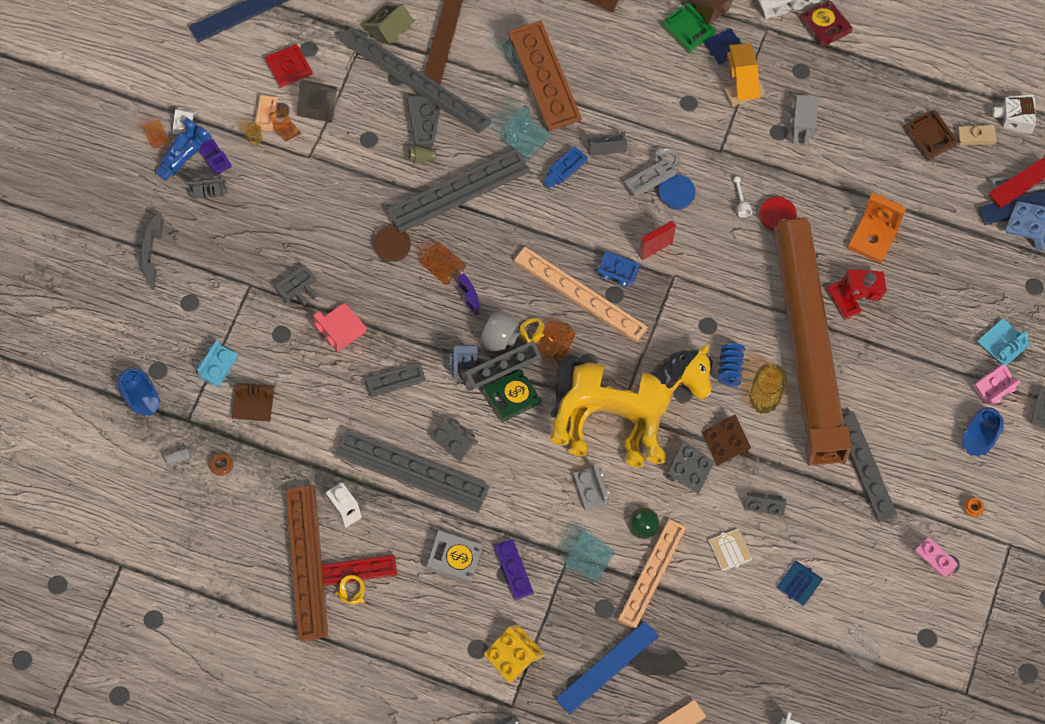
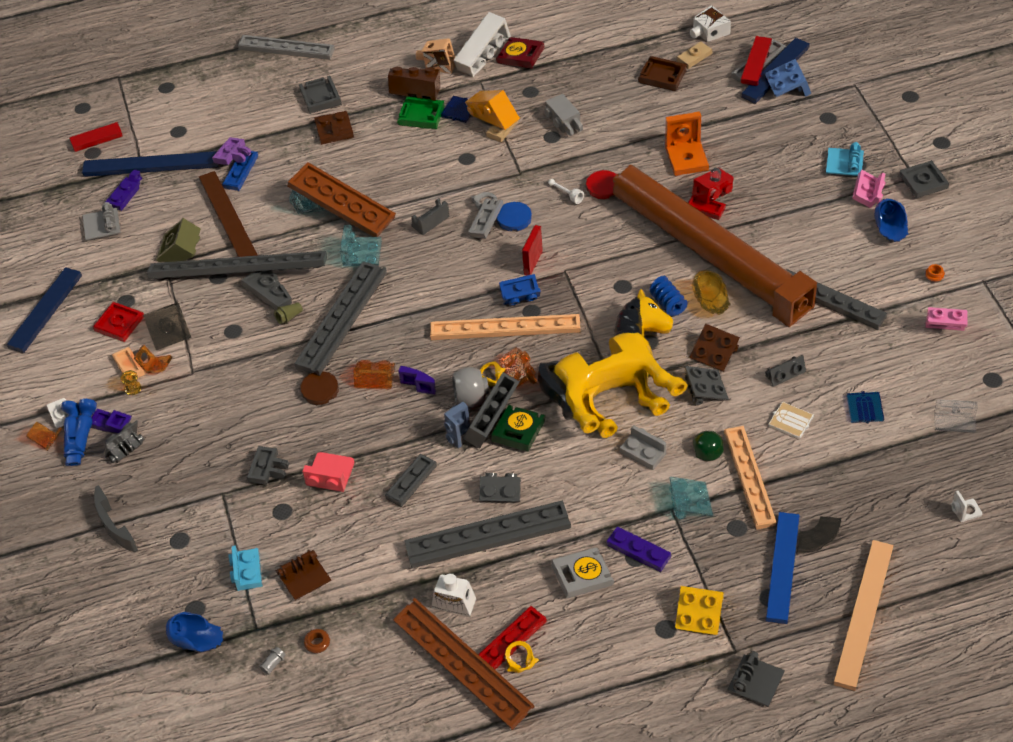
camera: 30 degrees left, 15 degrees down
(565, 167) = (412, 252): blue hinge -> none

